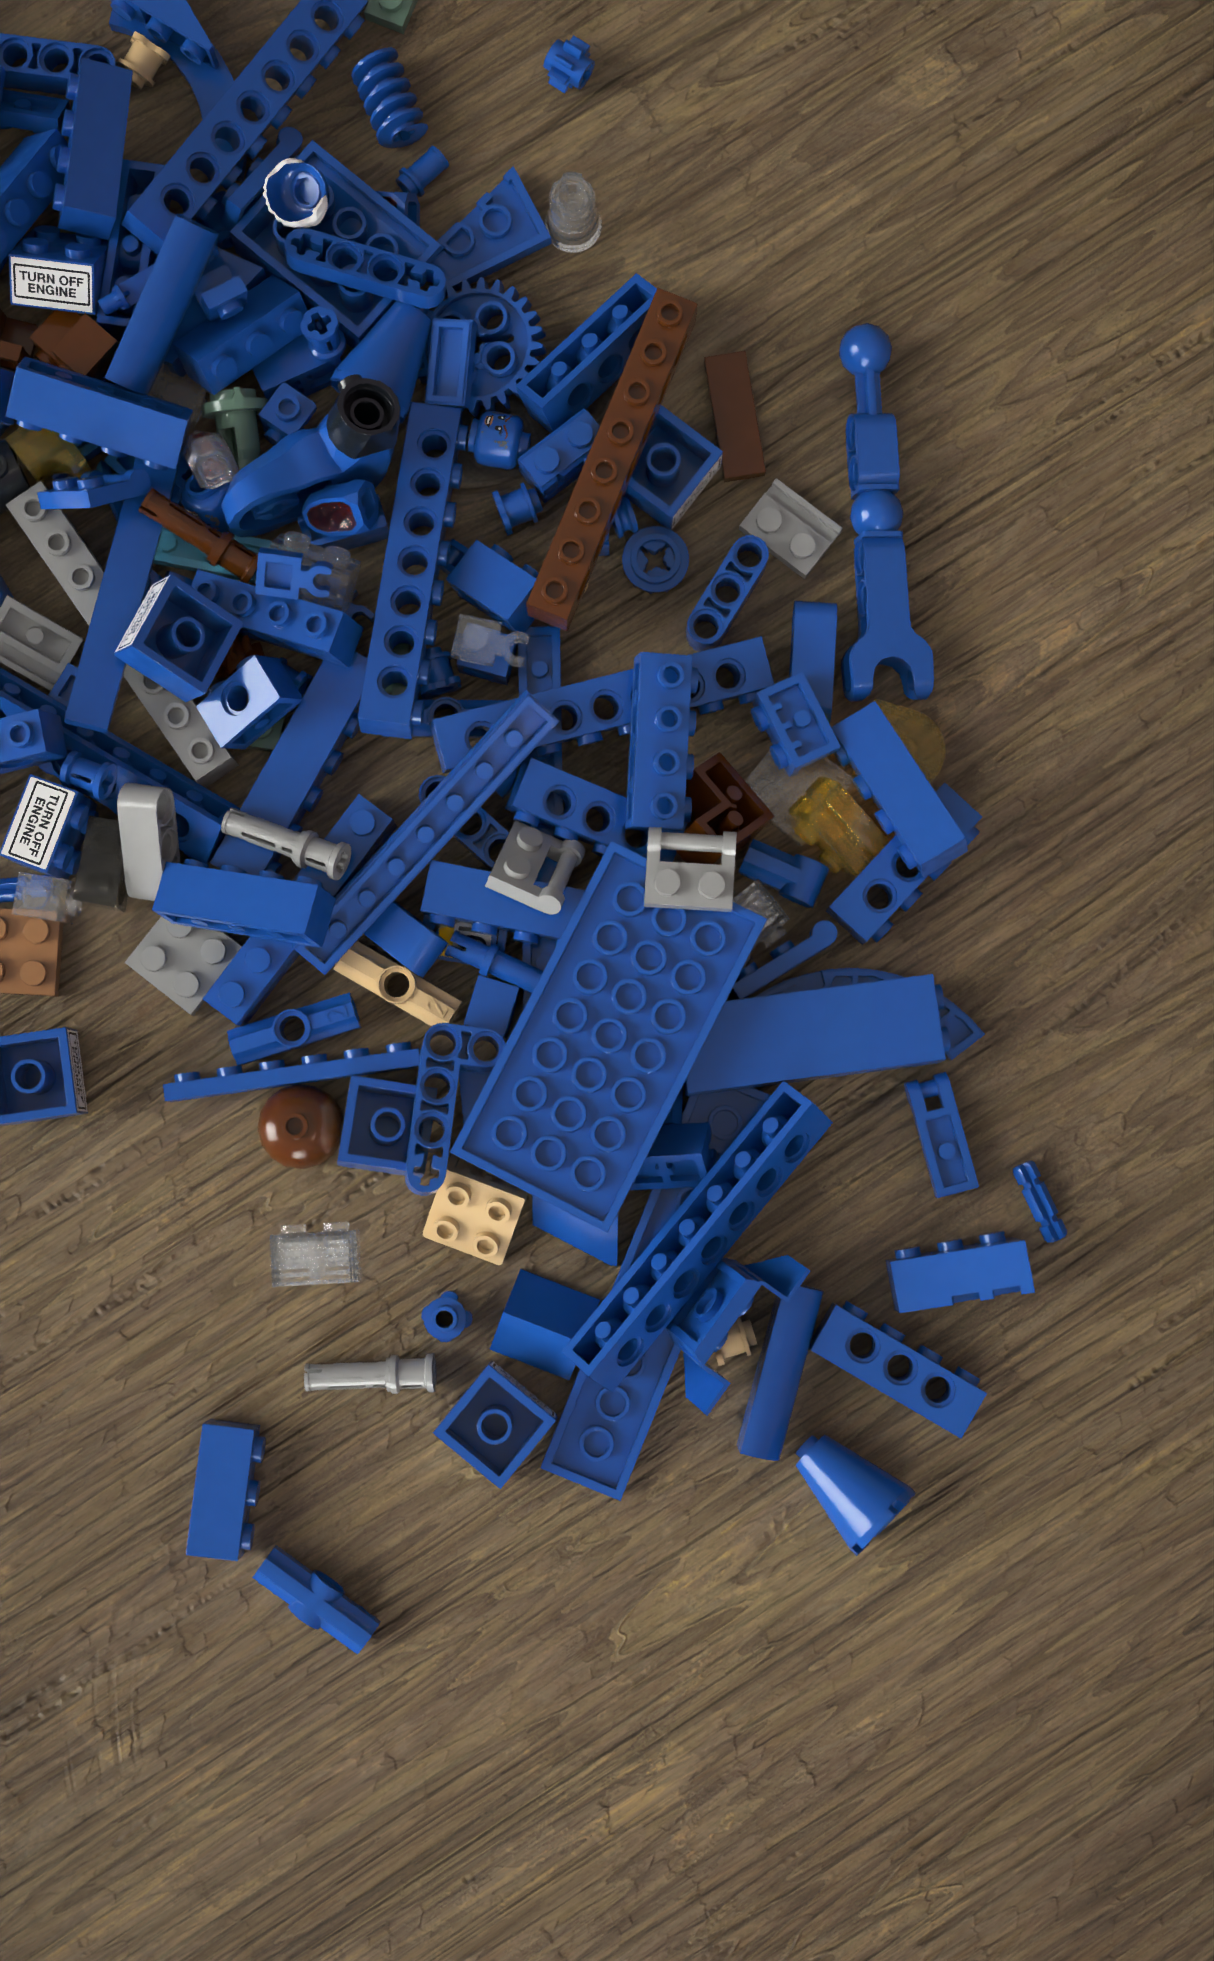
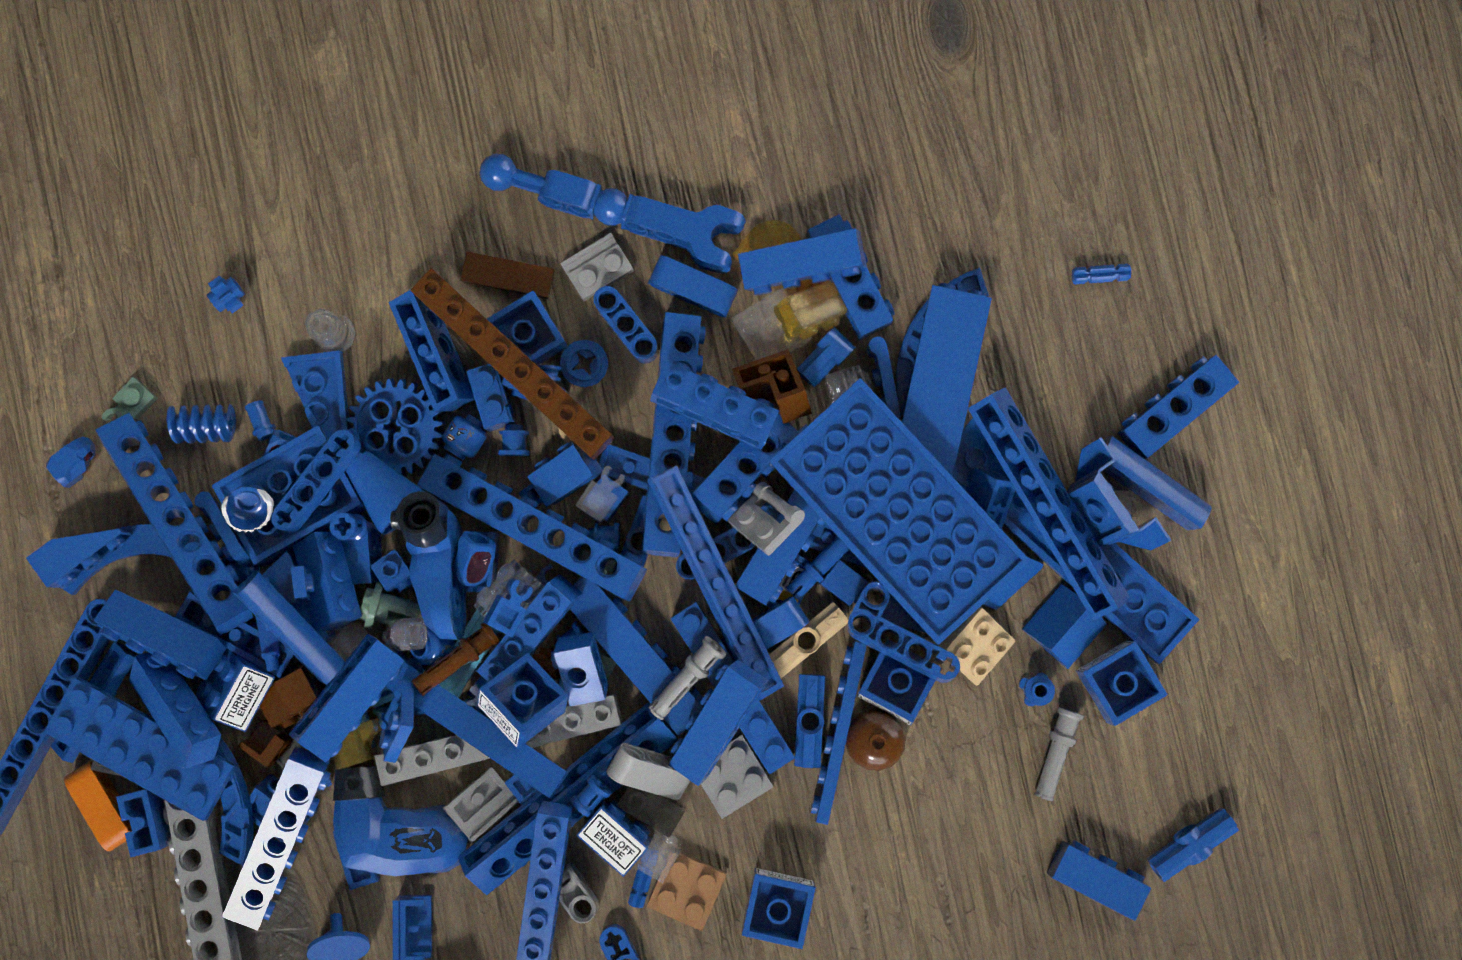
camera: 70 degrees left, 0 degrees up
(144, 60) = (107, 580): tan brick -> none
(315, 1256) = (966, 761): clear brick -> none
(451, 362) = (401, 448): blue tile -> none
(690, 884) = (819, 418): light grey plate -> none
(794, 724) = (733, 313): blue bracket -> none
(851, 1490) = (1247, 465): blue cone -> none
(941, 1136) = (1036, 320): blue plate -> none
(959, 1272) = (1130, 342): blue wedge -> none

